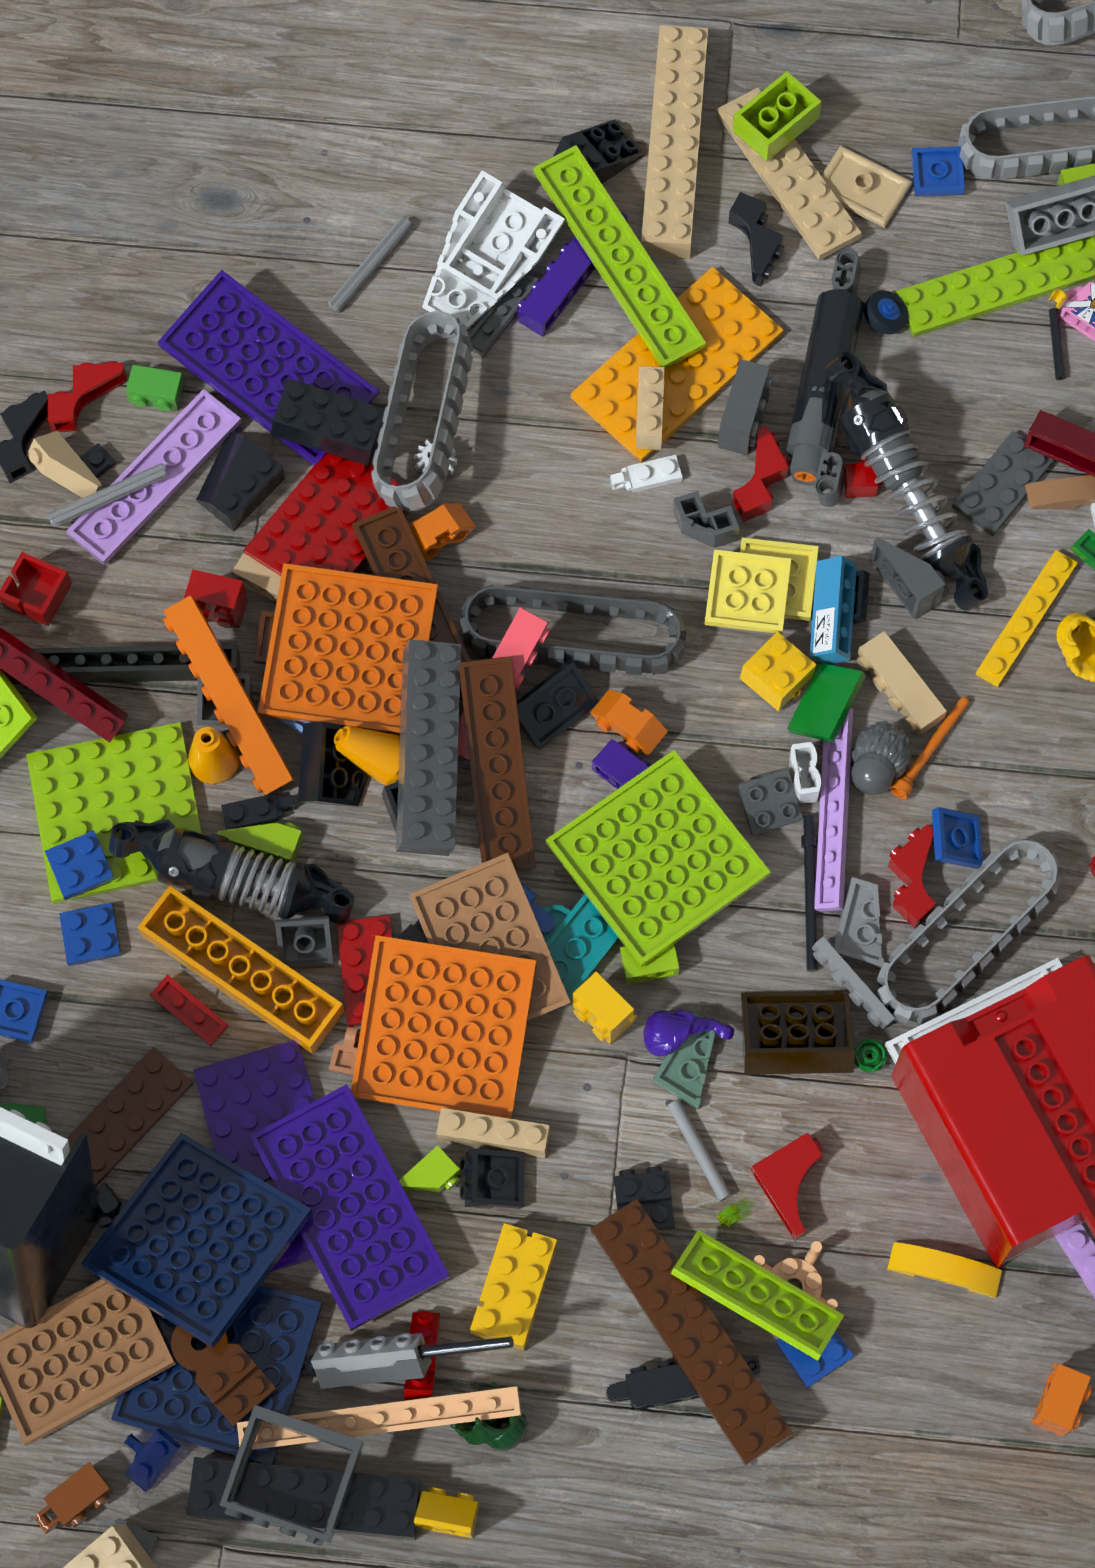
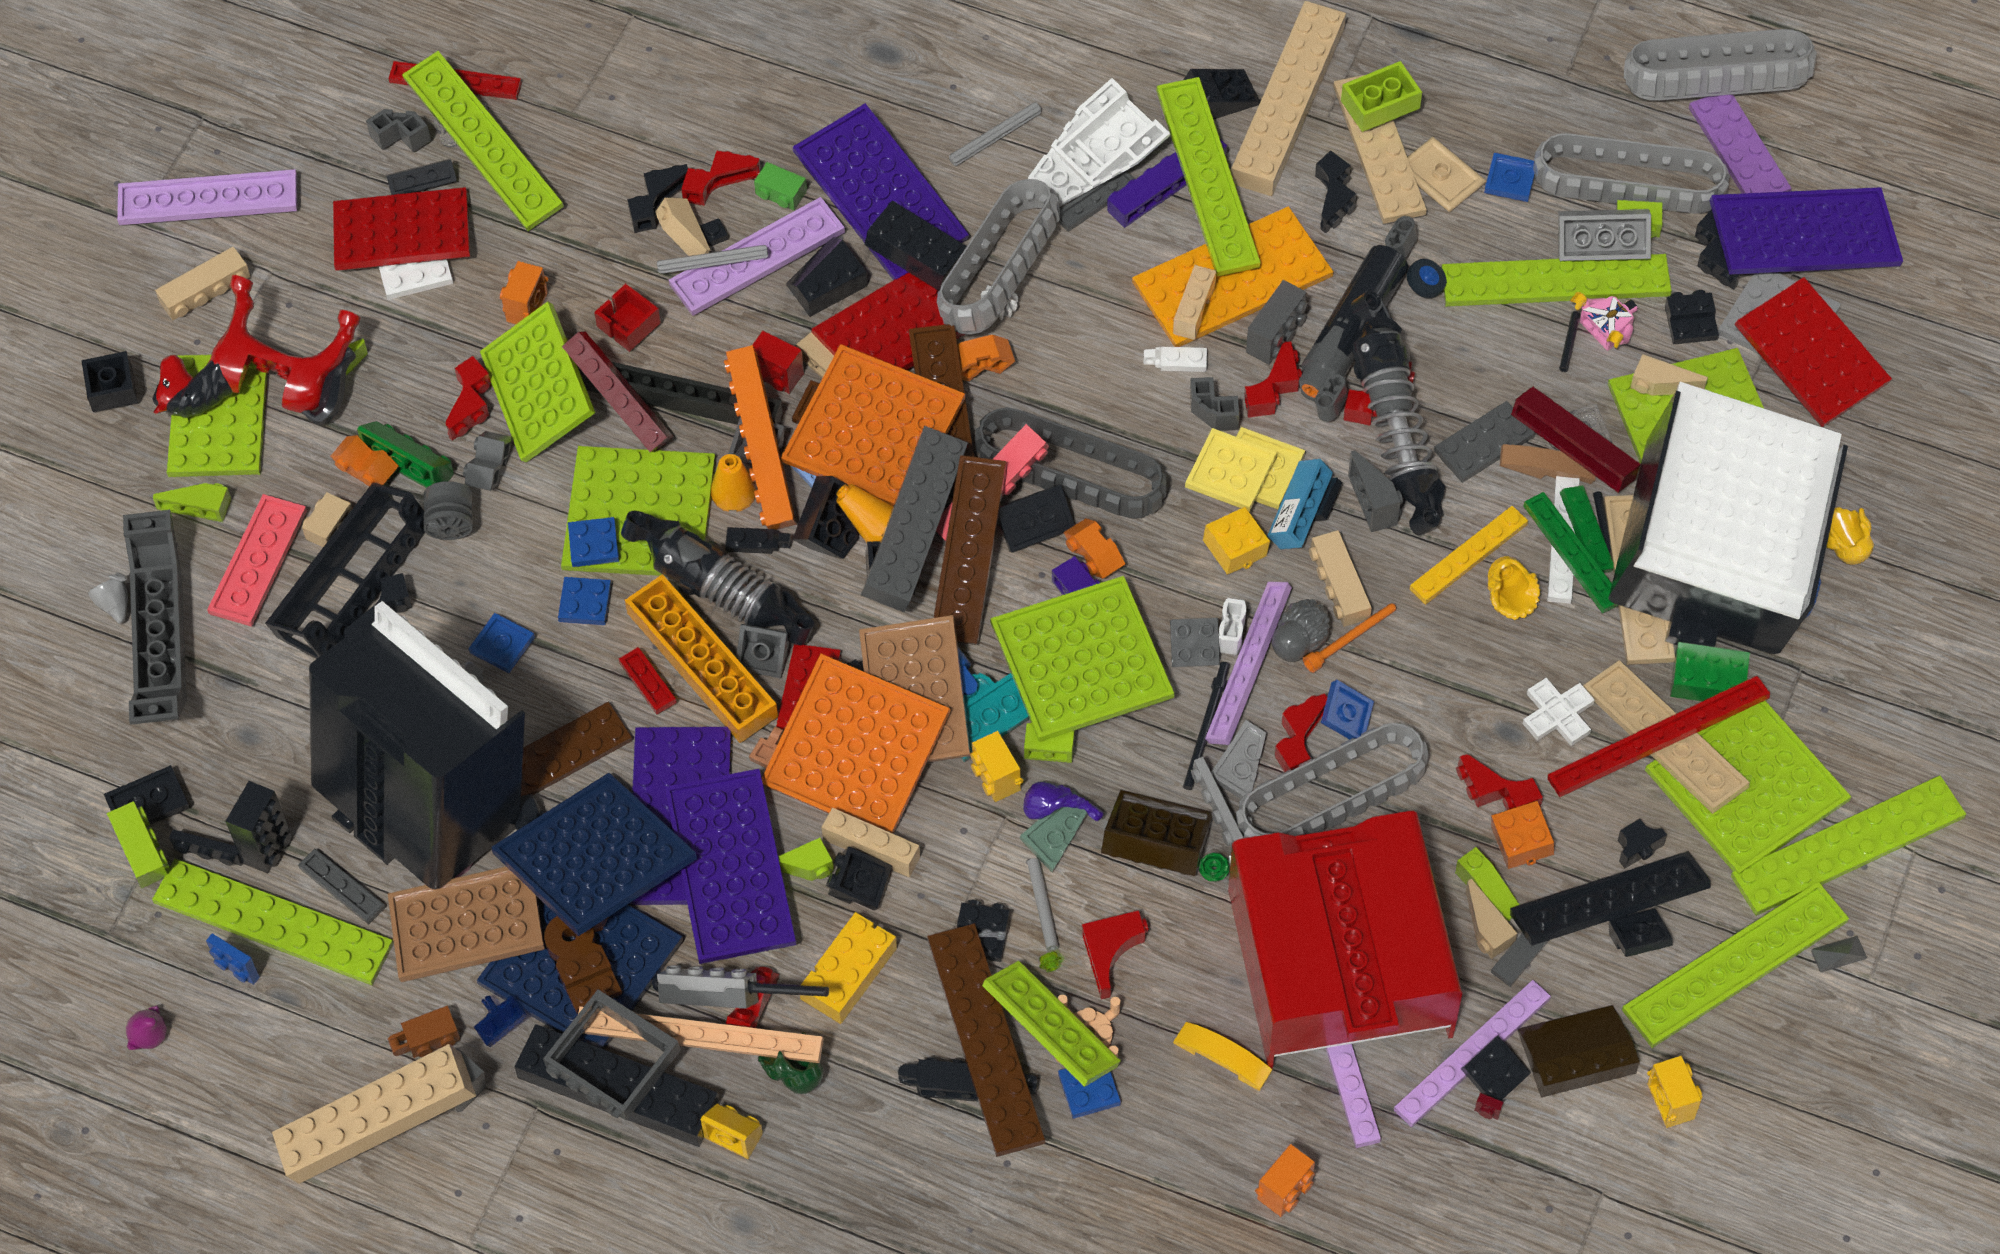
camera: 15 degrees right, 10 degrees down
(271, 839) = (764, 562): lime slope -> none
(826, 702) = (1270, 575): green tile -> none

